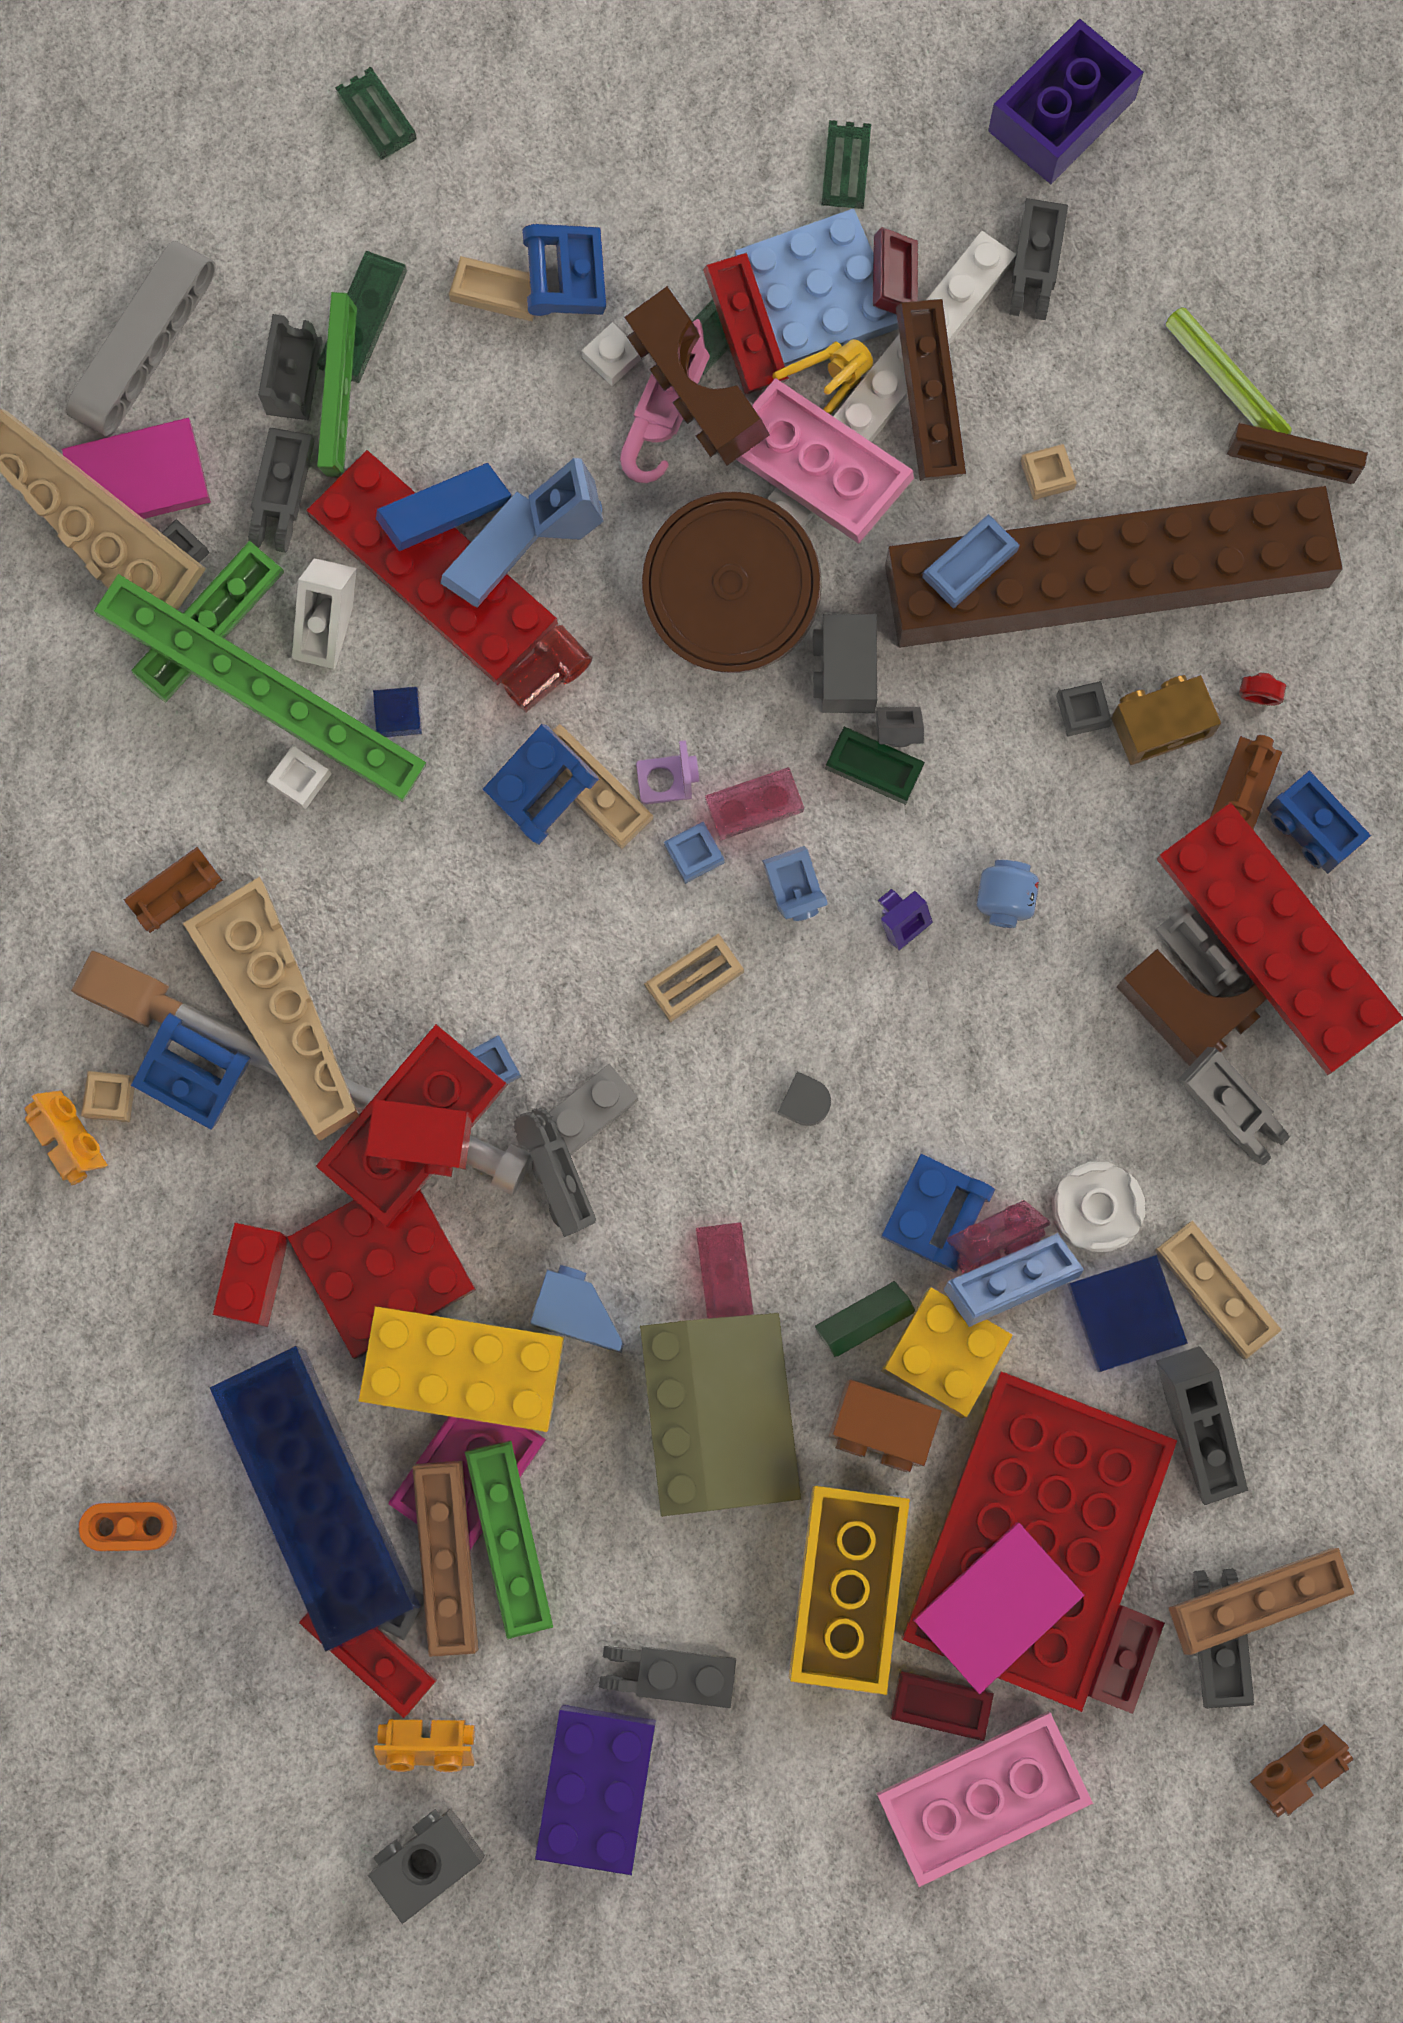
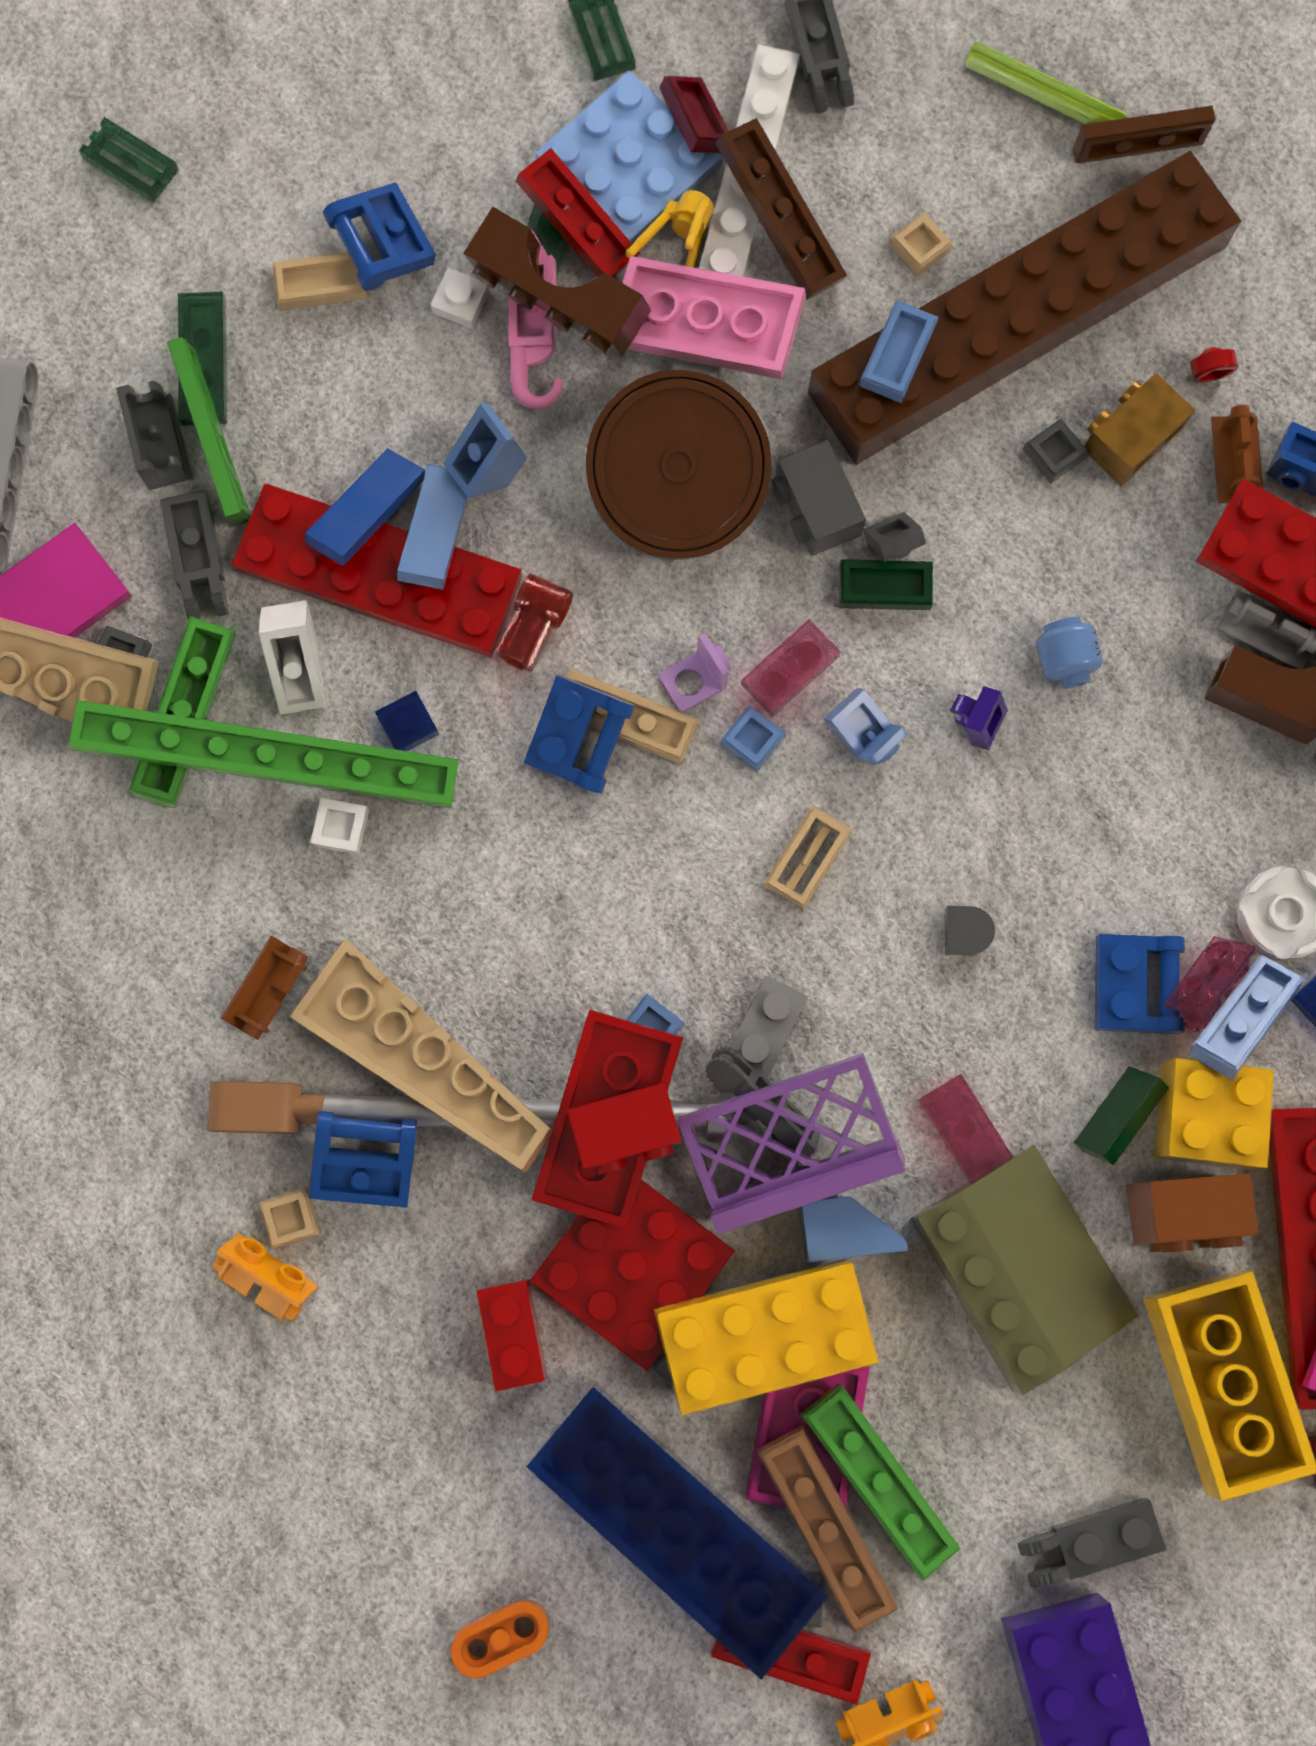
camera: 25 degrees left, 0 degrees up
(558, 1255) = (804, 1184): none -> medium lavender fence

